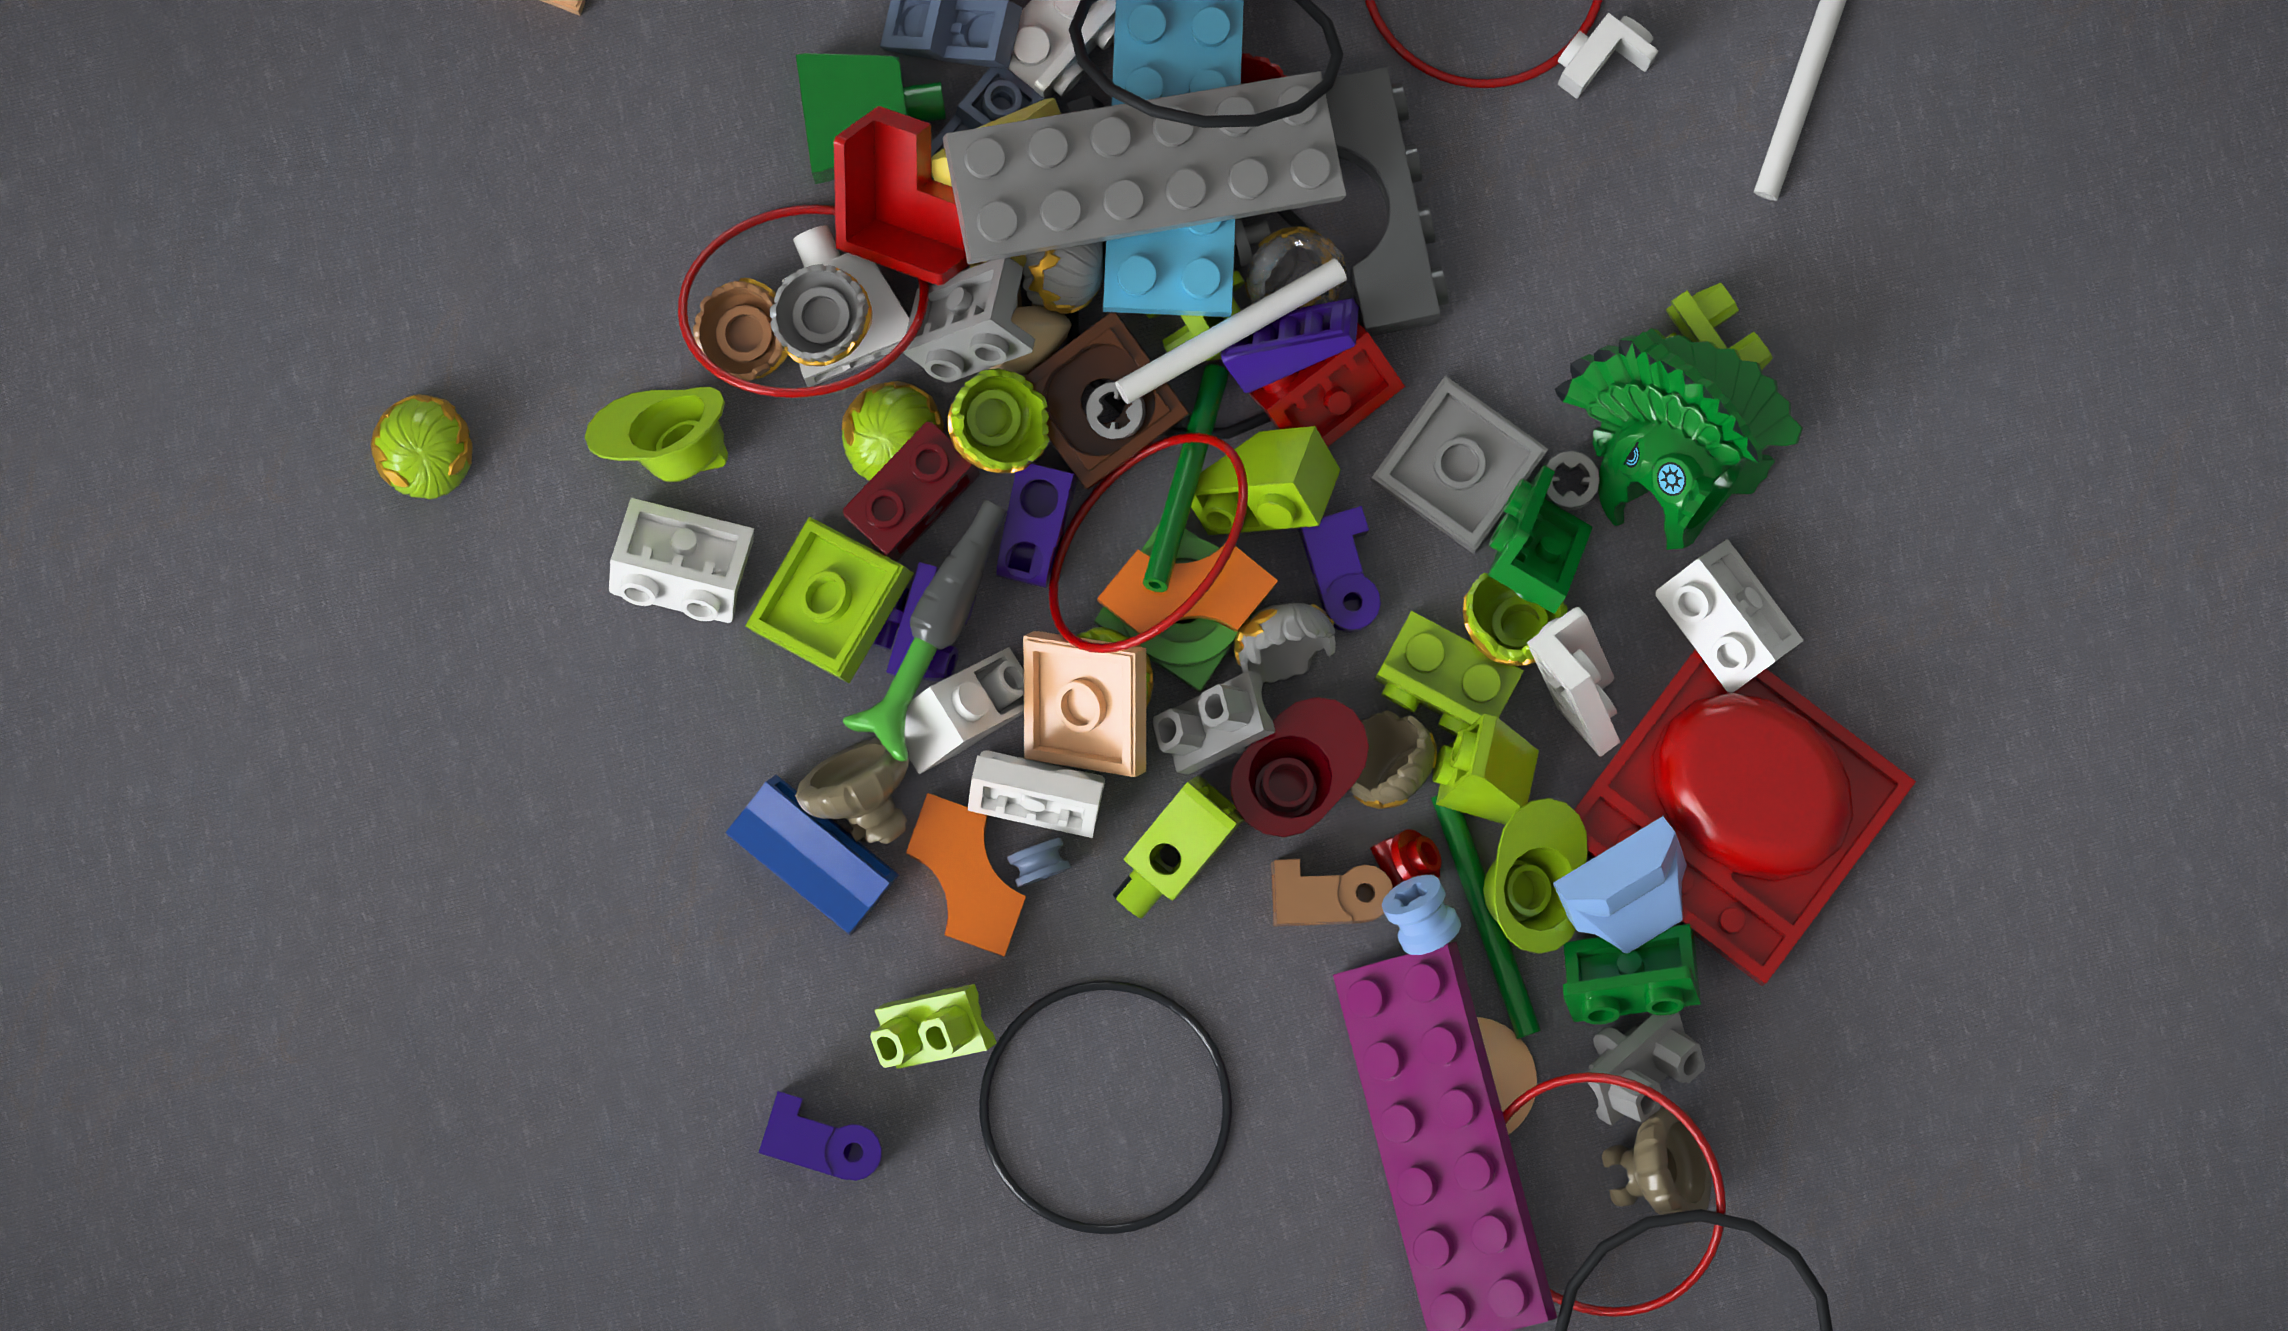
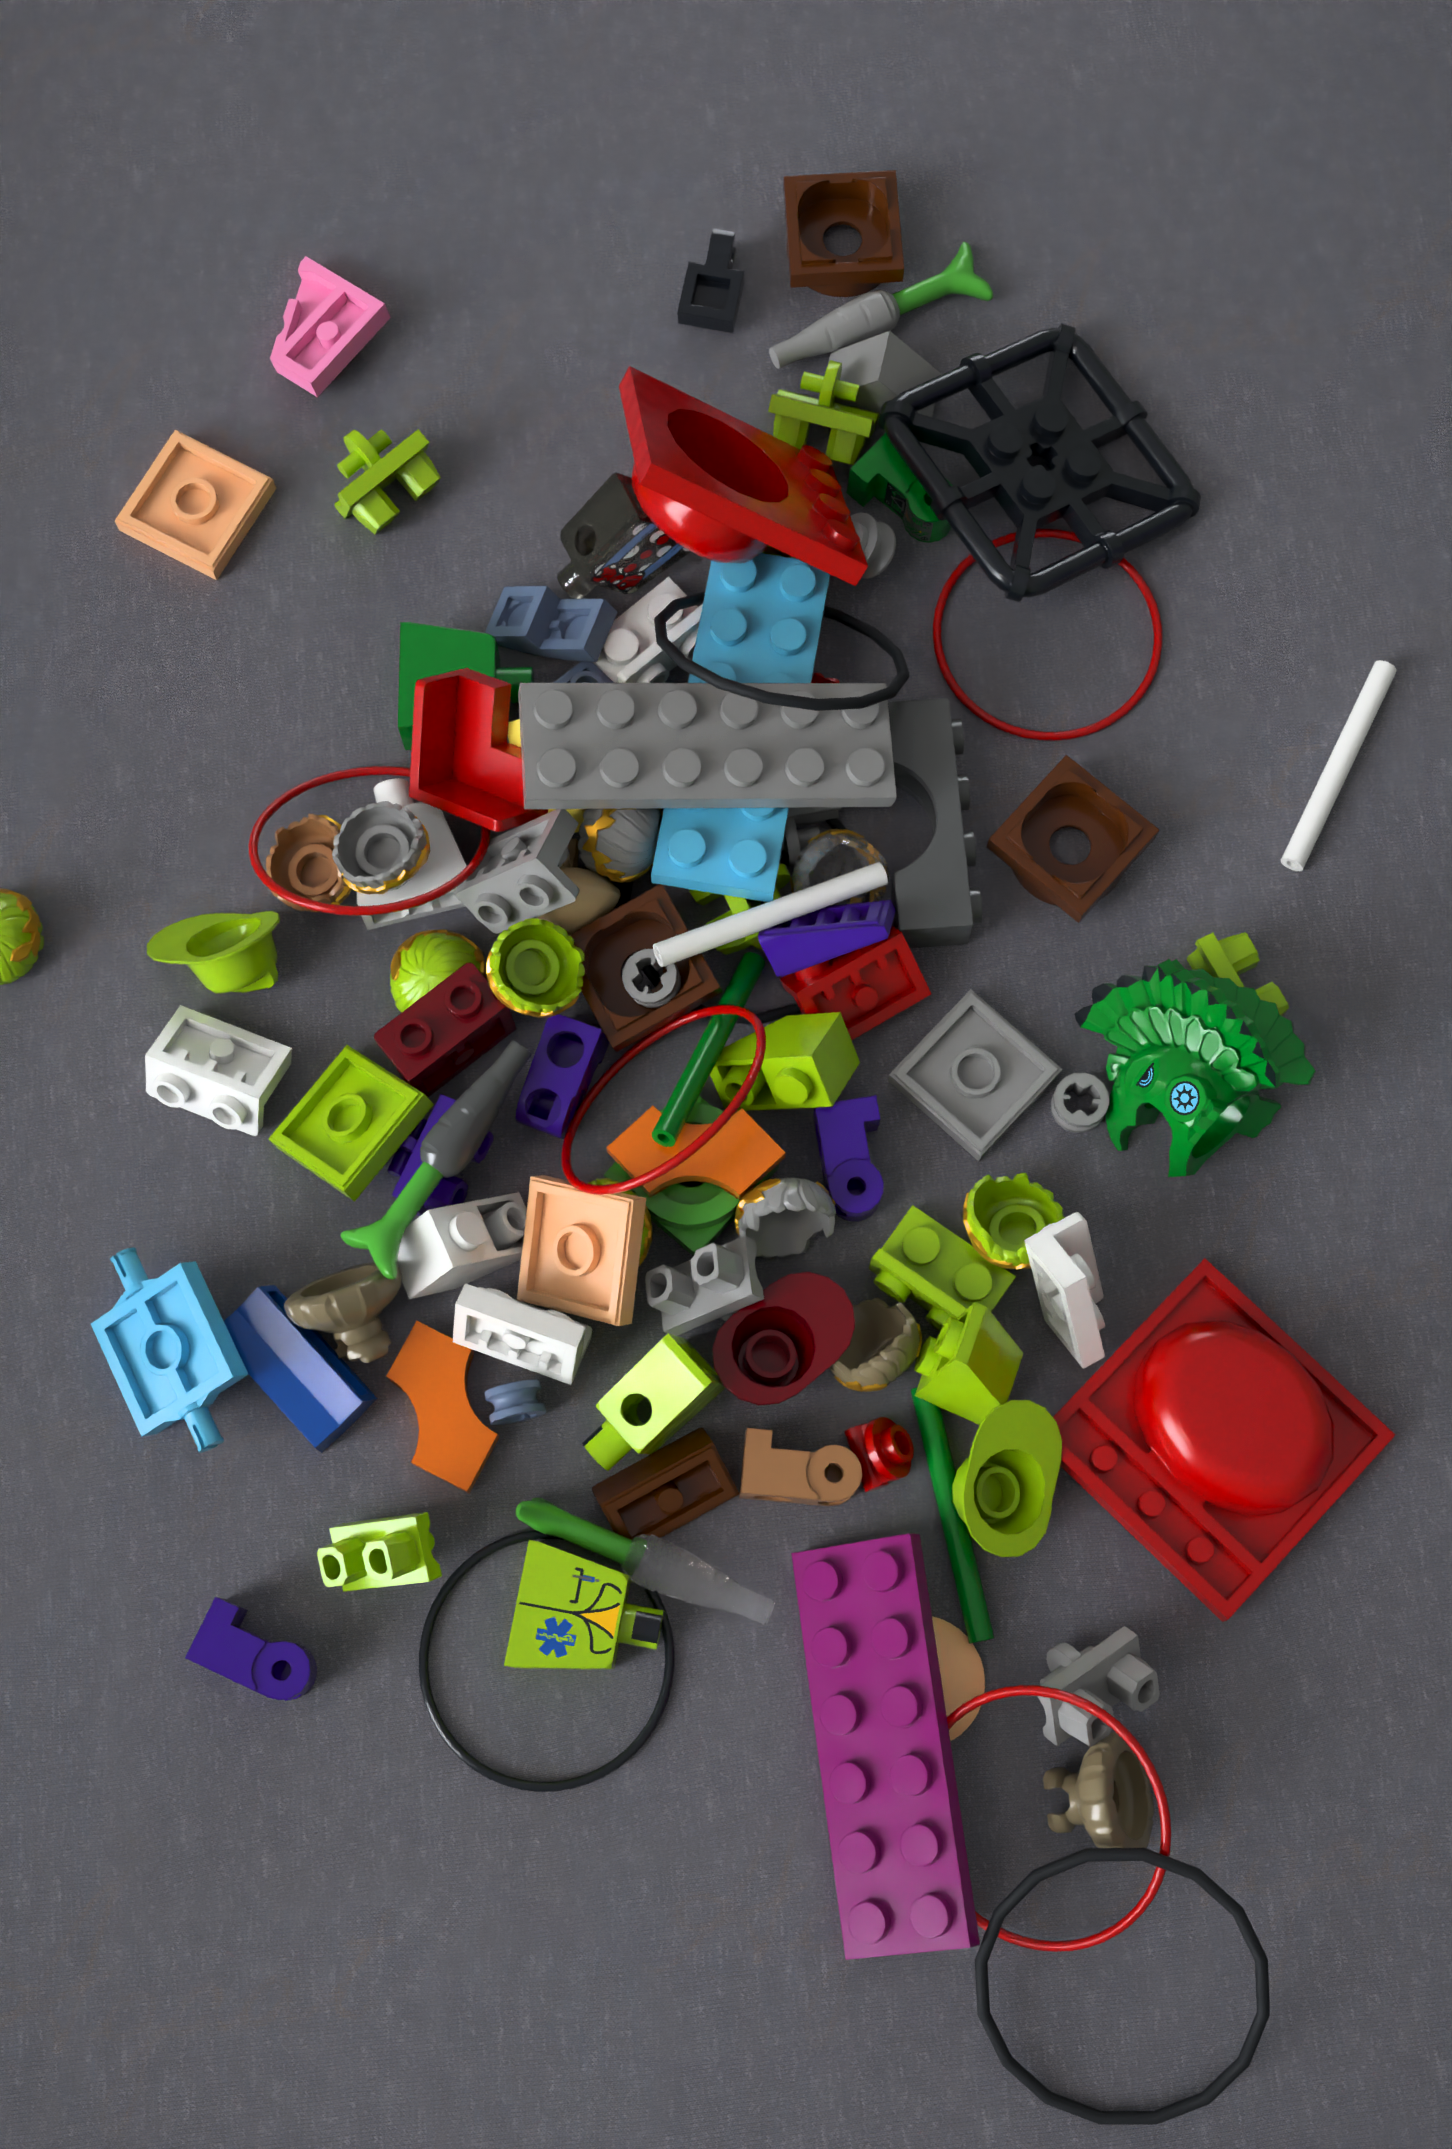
camera: 10 degrees right, 10 degrees down
(686, 855) = (168, 1348): none -> medium azure plate
(1130, 1061) = (575, 1614): none -> lime torso
(1195, 1001) = (650, 1562): none -> clear piece
(1199, 929) = (666, 1488): none -> reddish brown slope
(1421, 914) = (887, 1501): light blue wheel -> none
(1524, 157) = (1079, 801): none -> reddish brown piece
(1537, 544) = (1043, 1153): green bracket -> none
(1588, 54) = (1140, 715): white bracket -> none
(1628, 889) = (1099, 1502): light blue slope -> none
(1651, 979) = (1093, 1591): green bracket -> none
(1728, 616) = (1222, 1248): white bracket -> none

